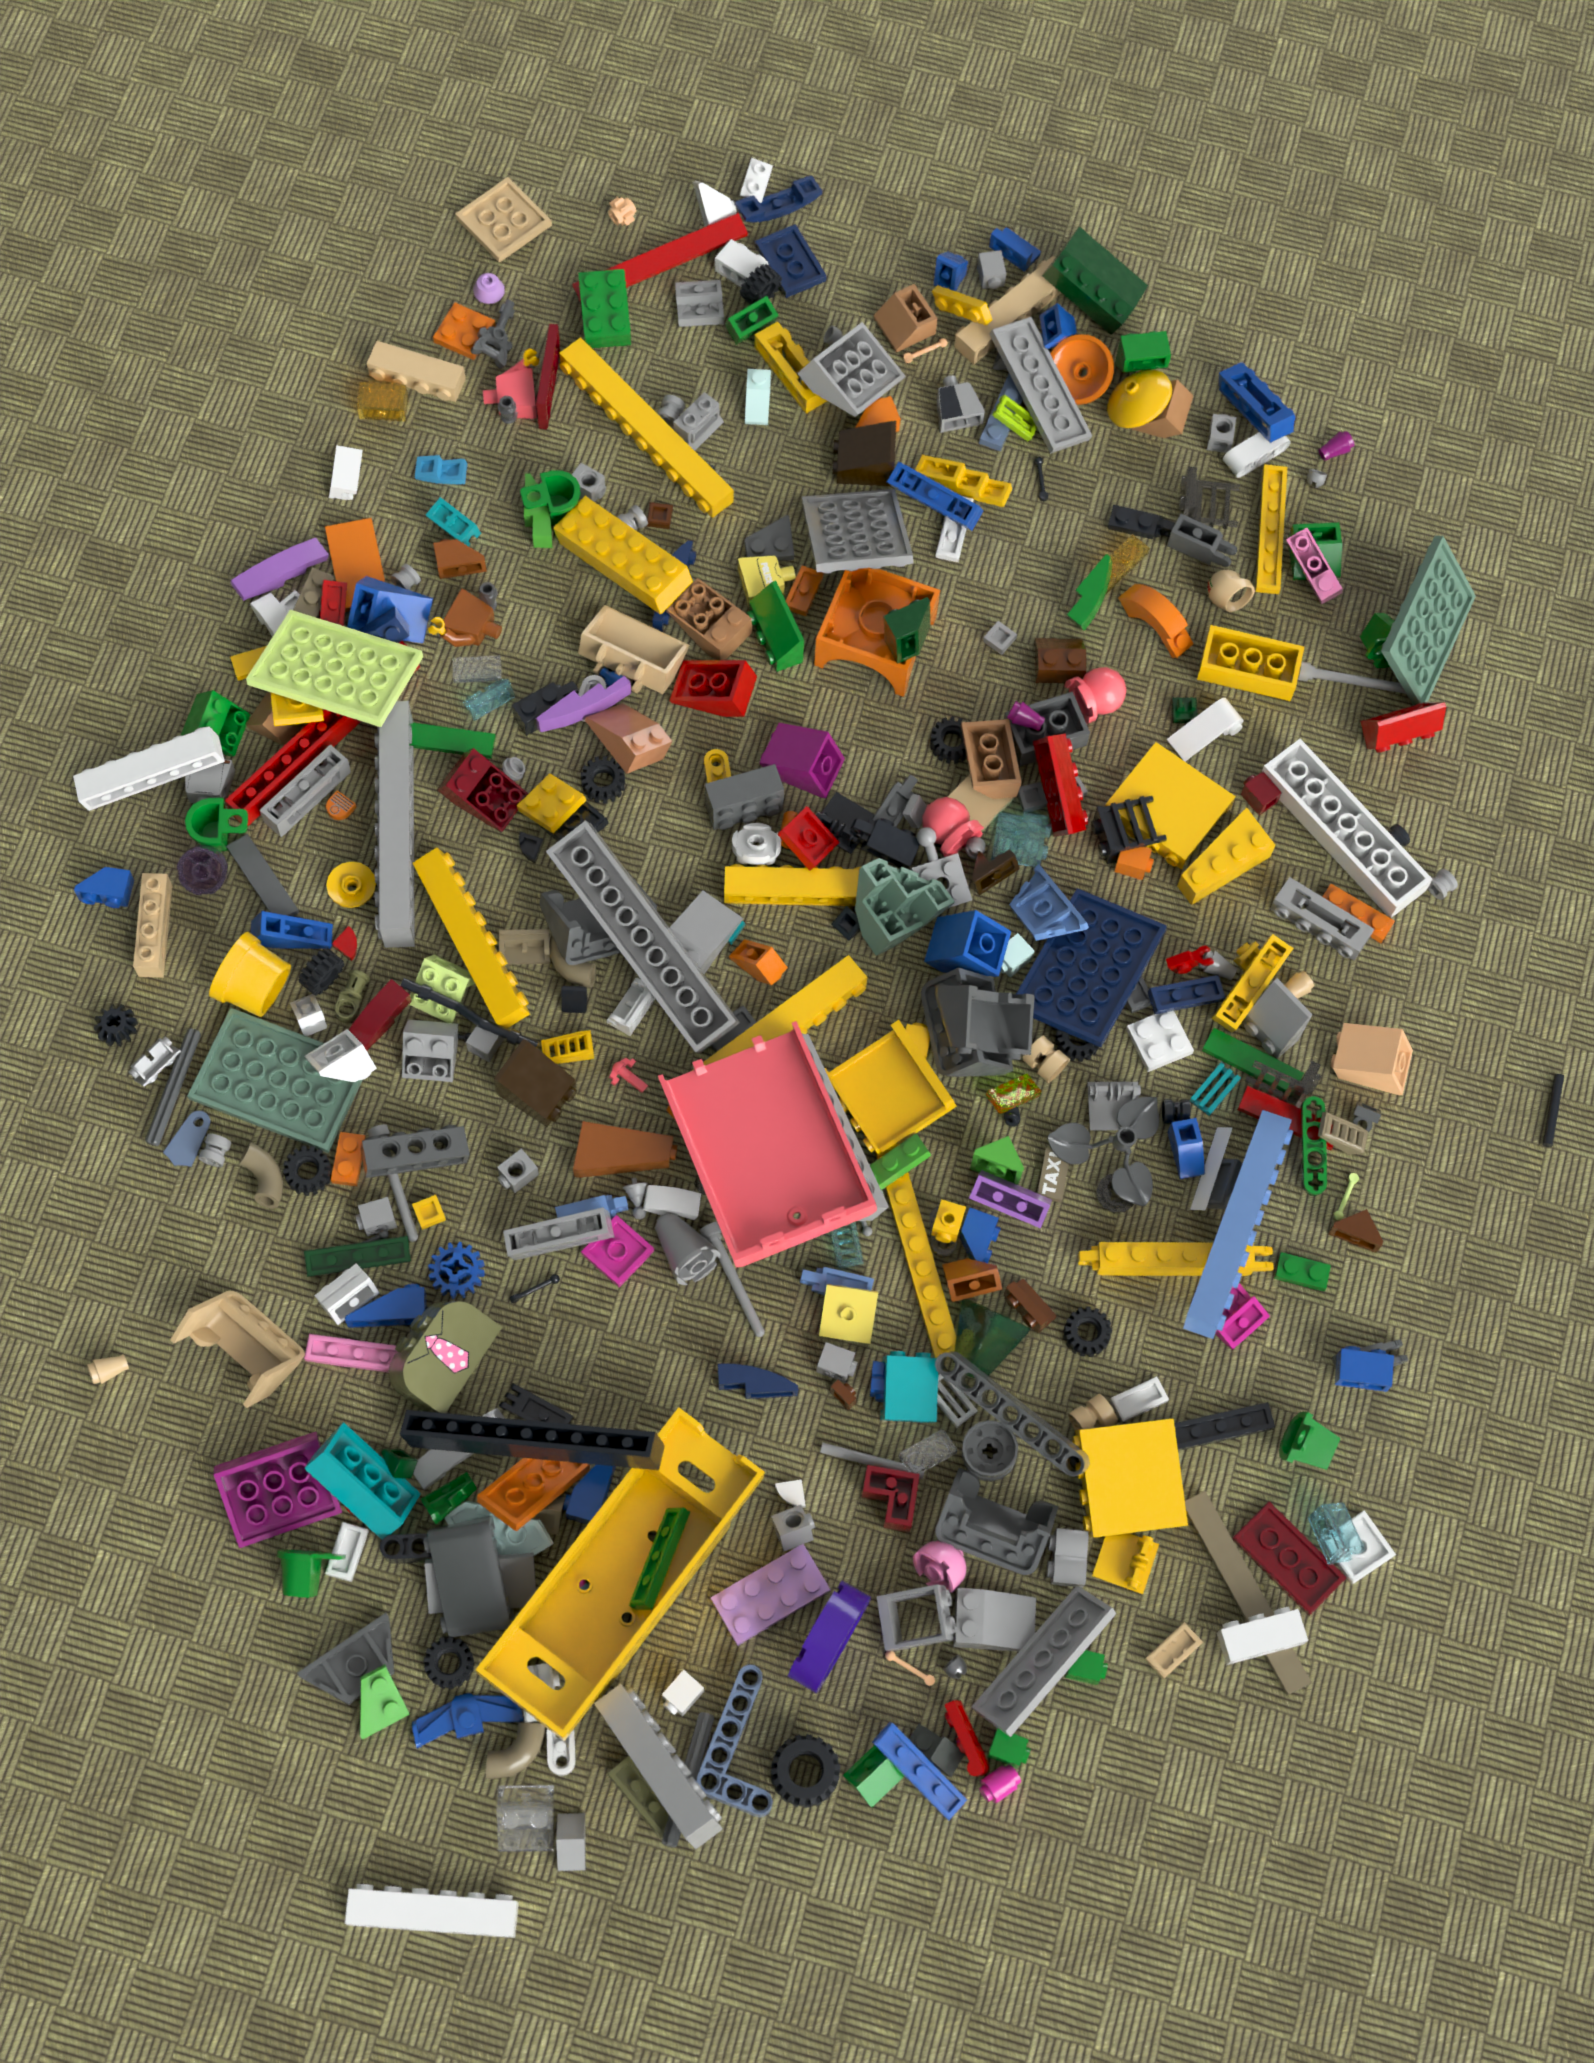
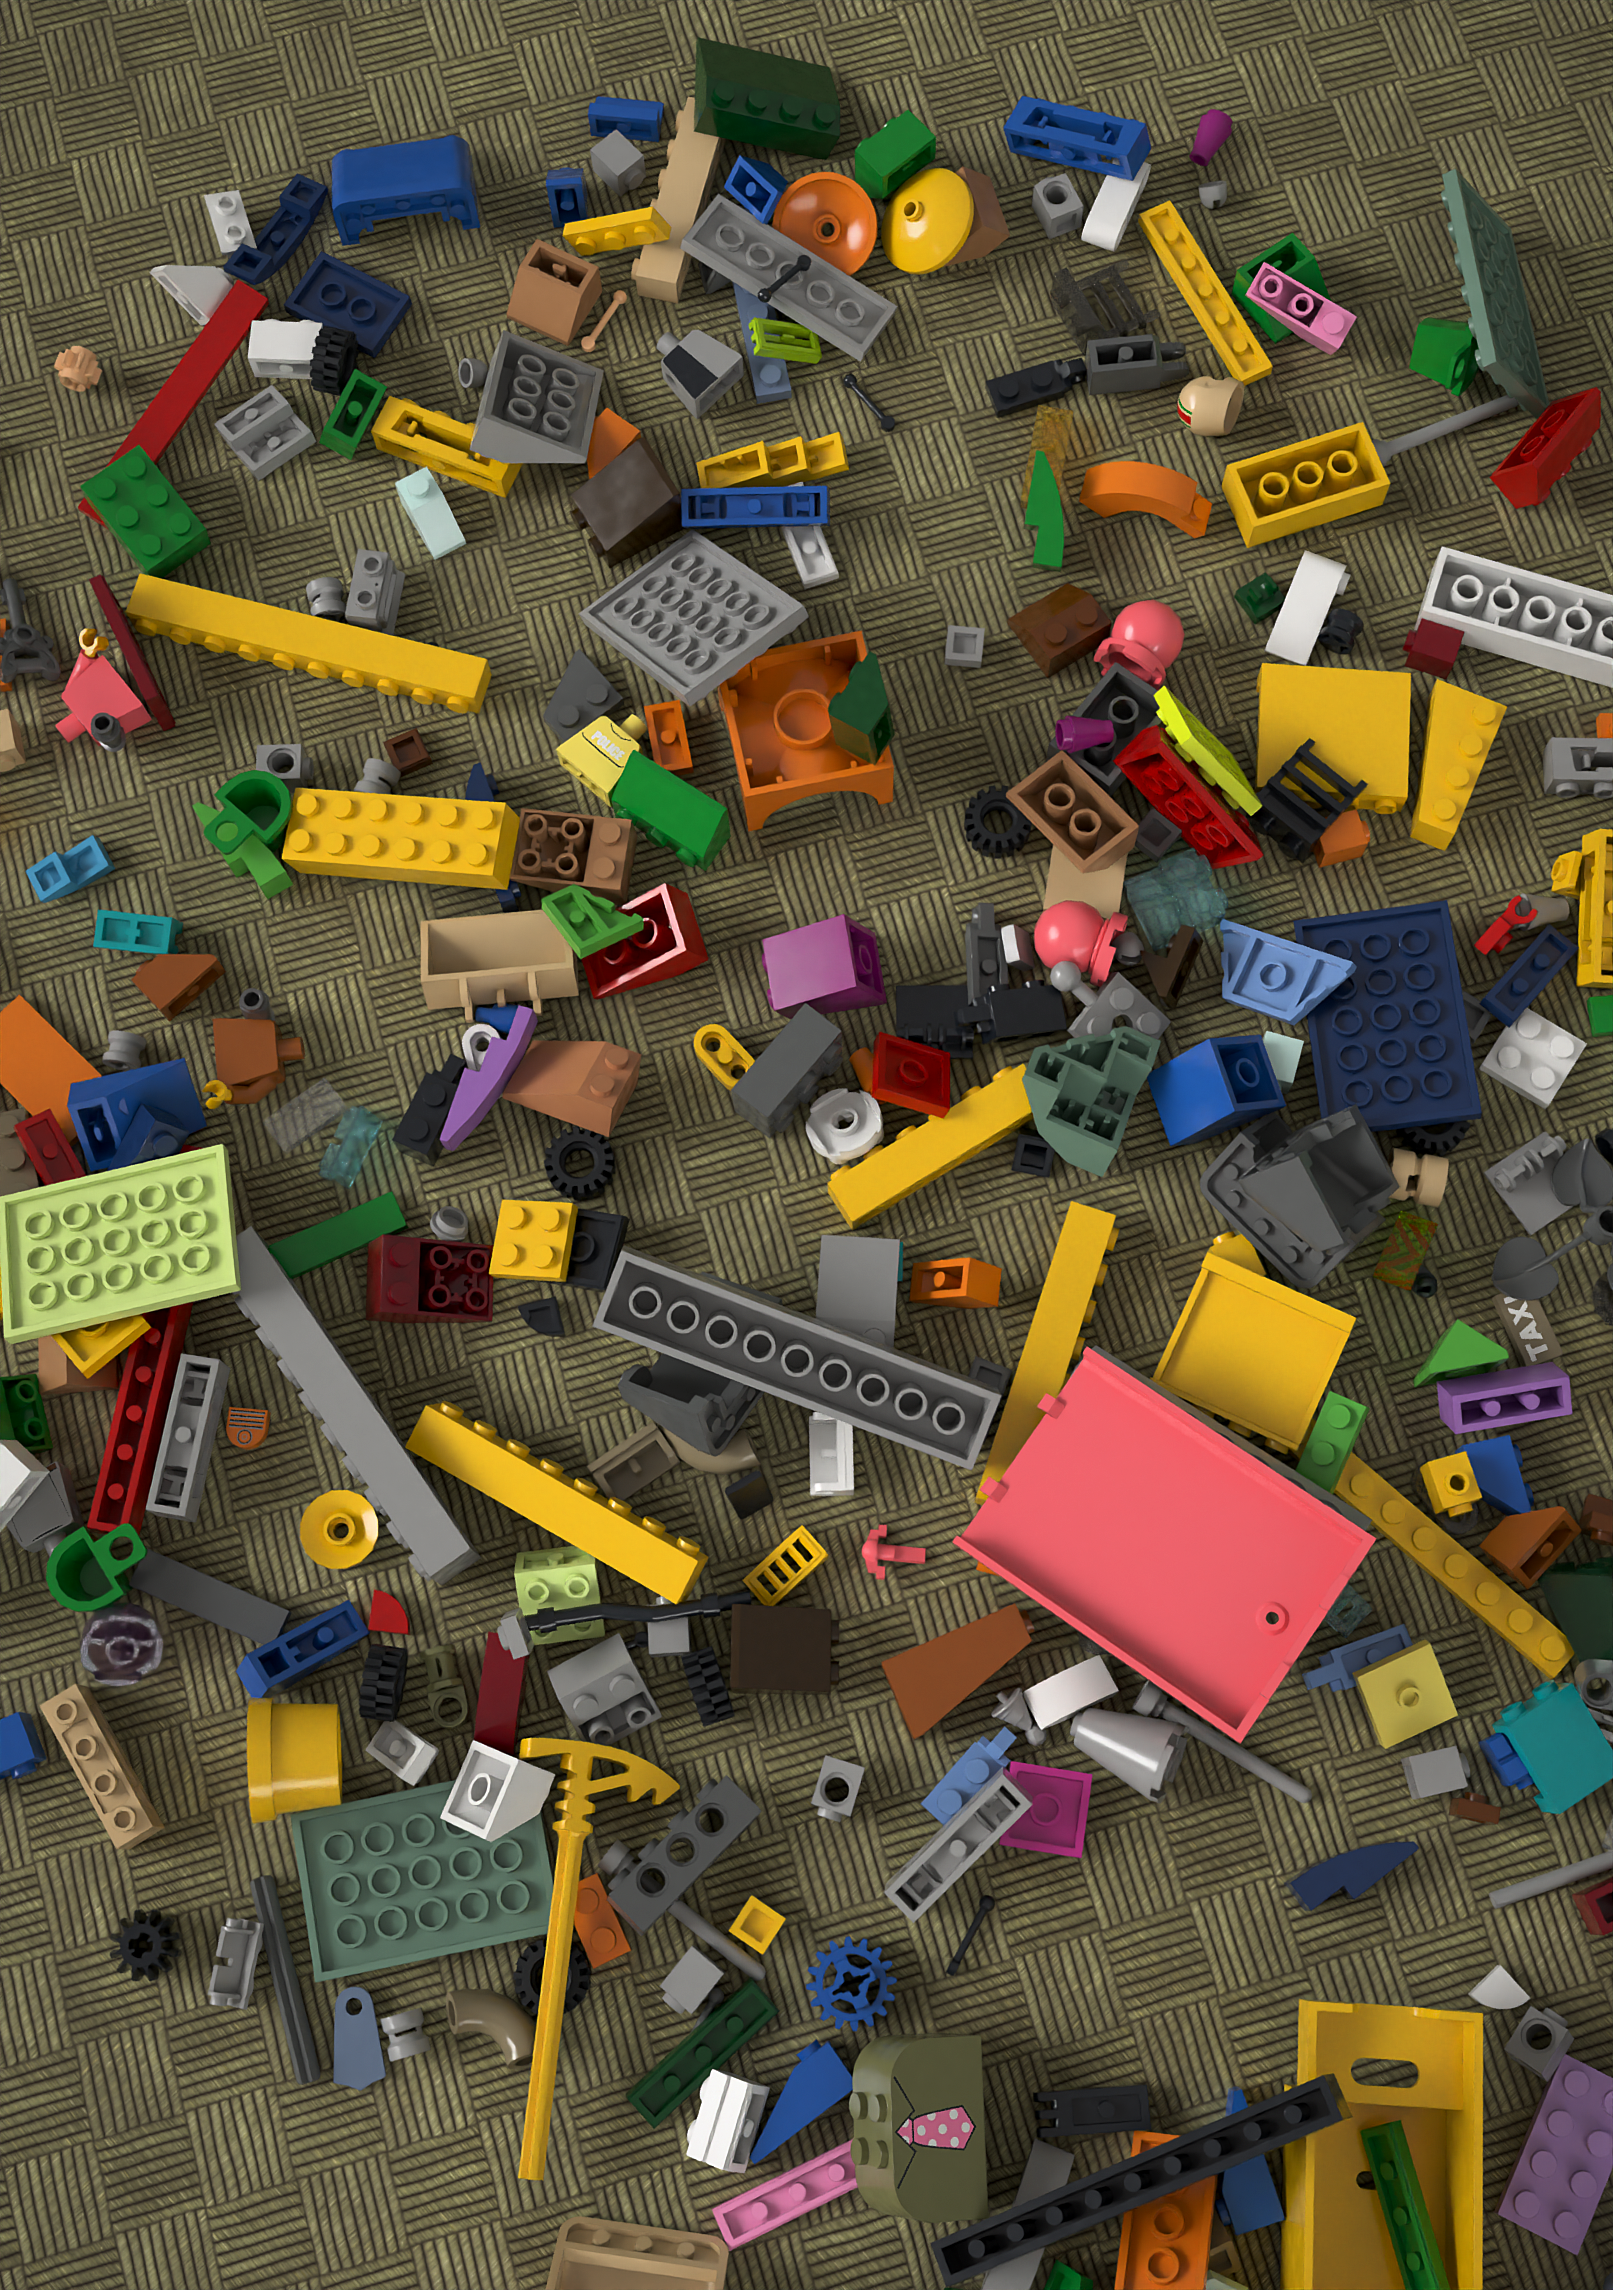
camera: 25 degrees left, 5 degrees up
(367, 1101) = (572, 1829): none -> yellow piece
(403, 984) = (515, 1634): none -> light grey plate
(482, 1082) = (707, 1686): none -> black tyre
(691, 655) = (588, 920): none -> bright green wing
(864, 212) = (402, 183): none -> blue windscreen
(1053, 381) = (803, 264): none -> black hinge
(1085, 765) = (1199, 744): none -> neon yellow plate
(1215, 753) = (1340, 631): none -> black wheel

